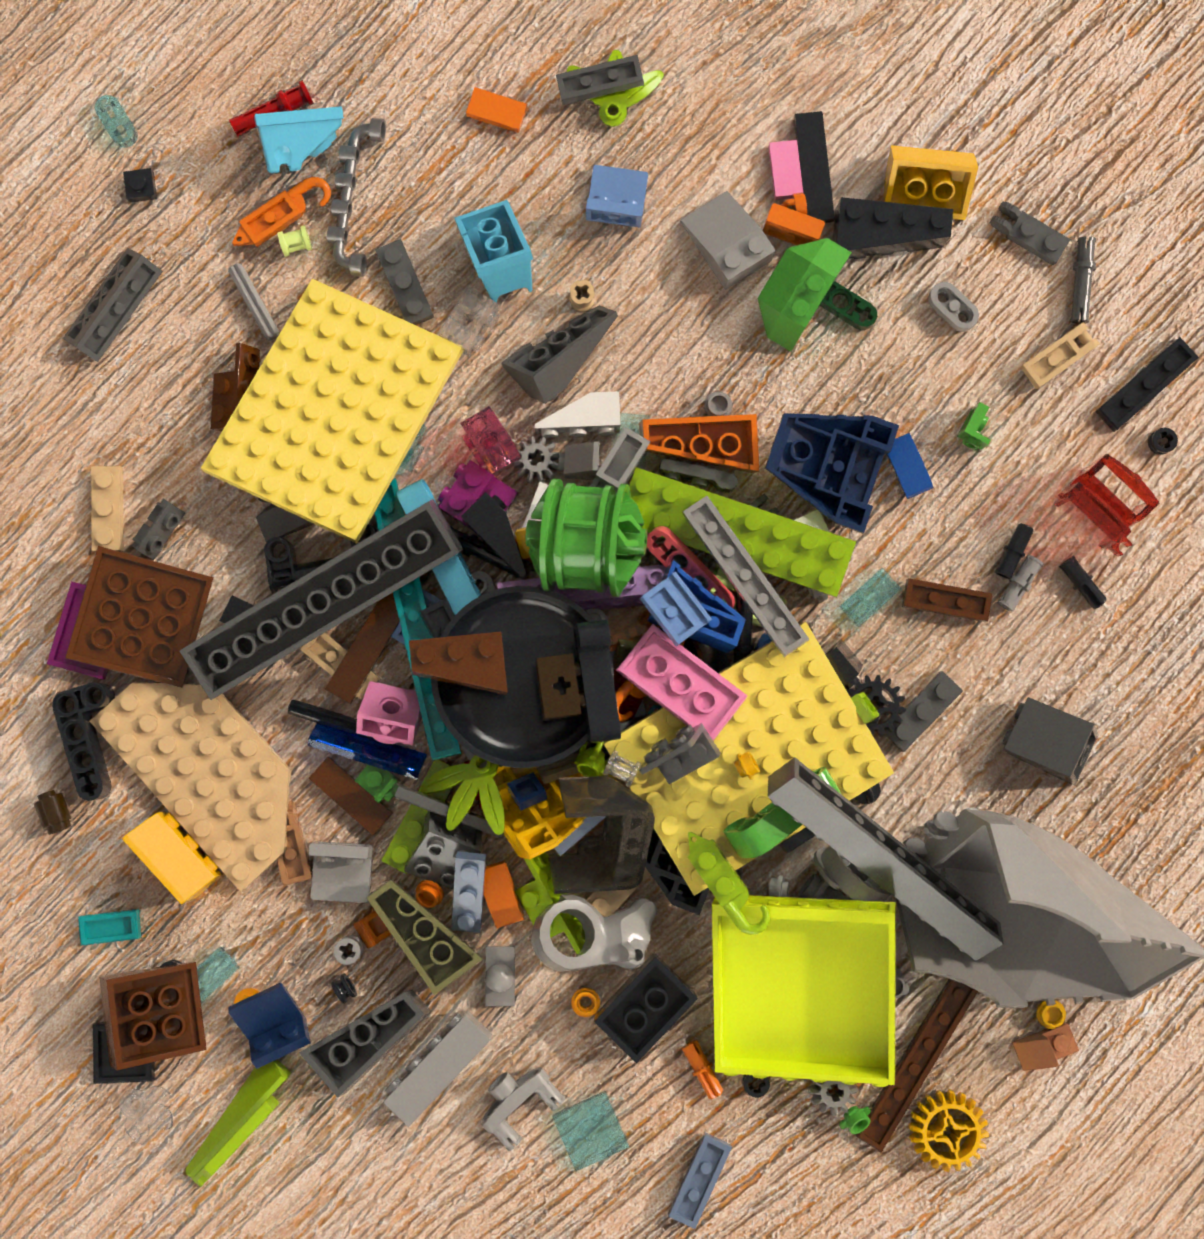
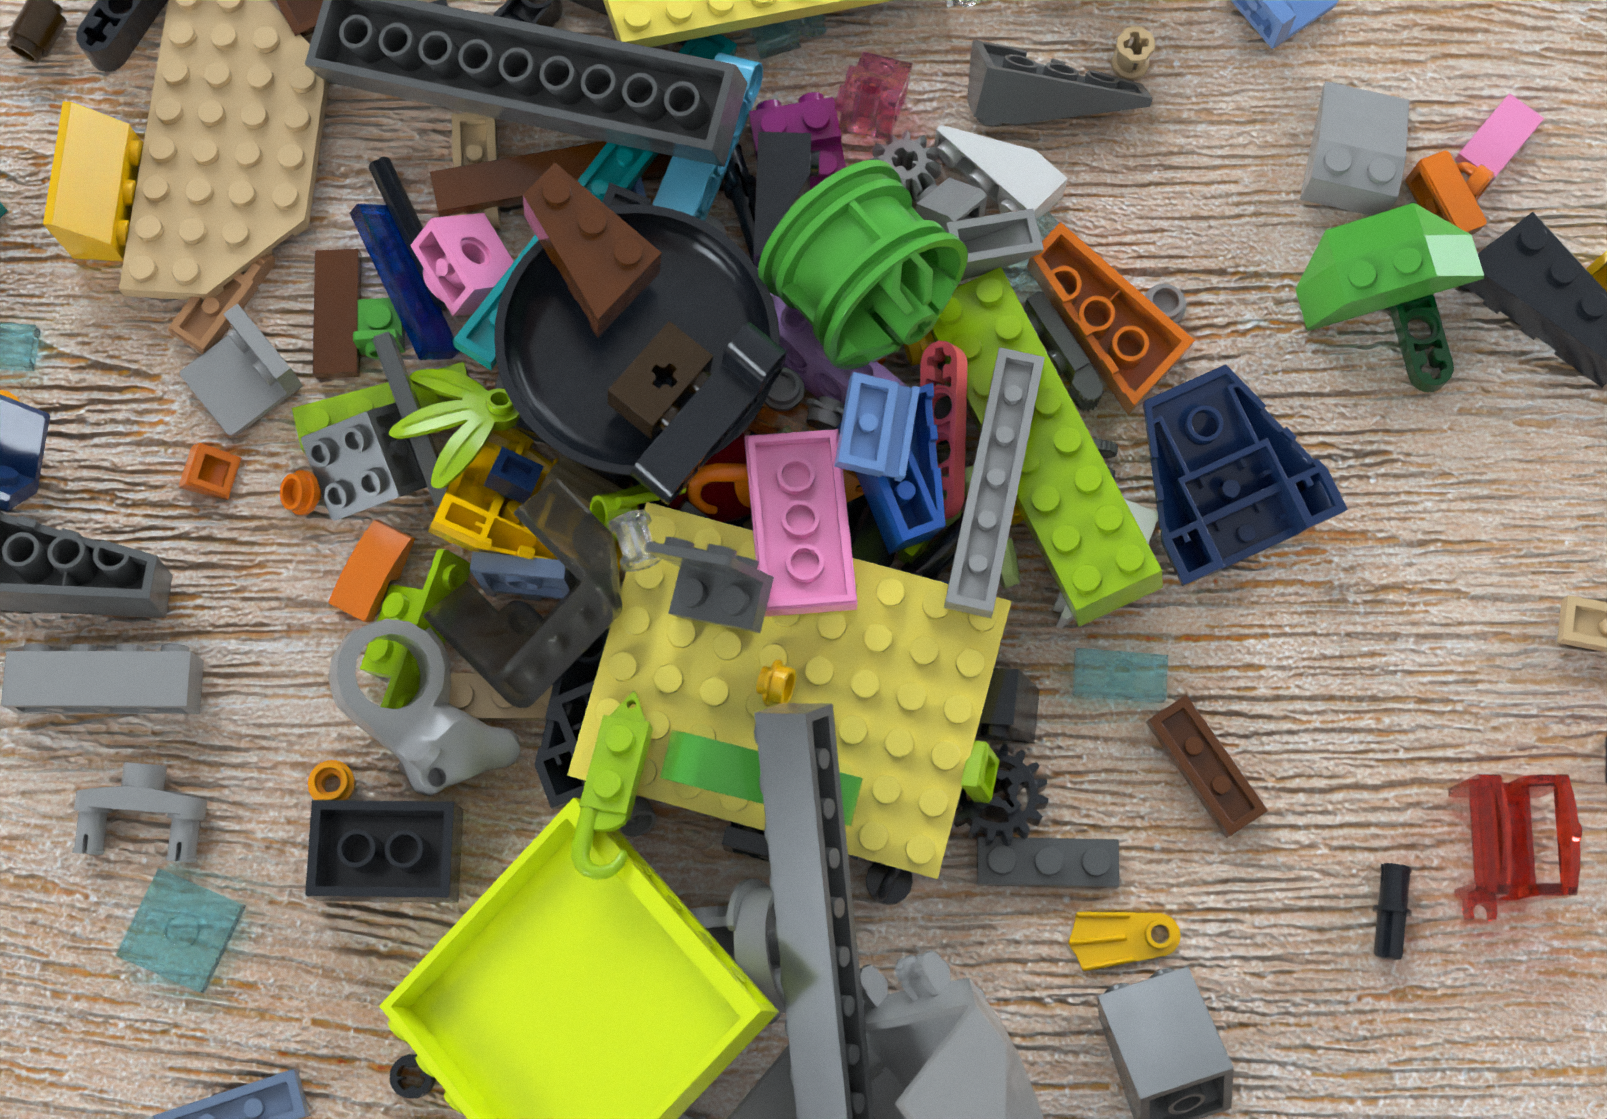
camera: 55 degrees right, 10 degrees down
(339, 950) = (144, 459): light grey bush -> none
(344, 988) = (106, 497): black bush -> none
(425, 940) = (240, 526): olive wedge -> none
(468, 892) = (340, 527): sand blue plate -> none
(500, 976) = (275, 658): light grey tile -> none
(627, 614) = (824, 413): none -> light grey plate
(702, 1069) = (371, 994): orange axle -> none
(779, 887) = (677, 879): white plate -> none
(814, 165) = (1537, 163): black tile -> none
(909, 467) = (1314, 575): blue slope -> none
(955, 304) = (1550, 459): light grey plate -> none
(975, 422) = (1444, 603): bright green bracket -> none
(983, 711) = (1119, 938): none -> yellow piece
(1014, 551) = (1344, 793): black axle -> none
(1020, 583) = (1314, 835): light grey pin -> none

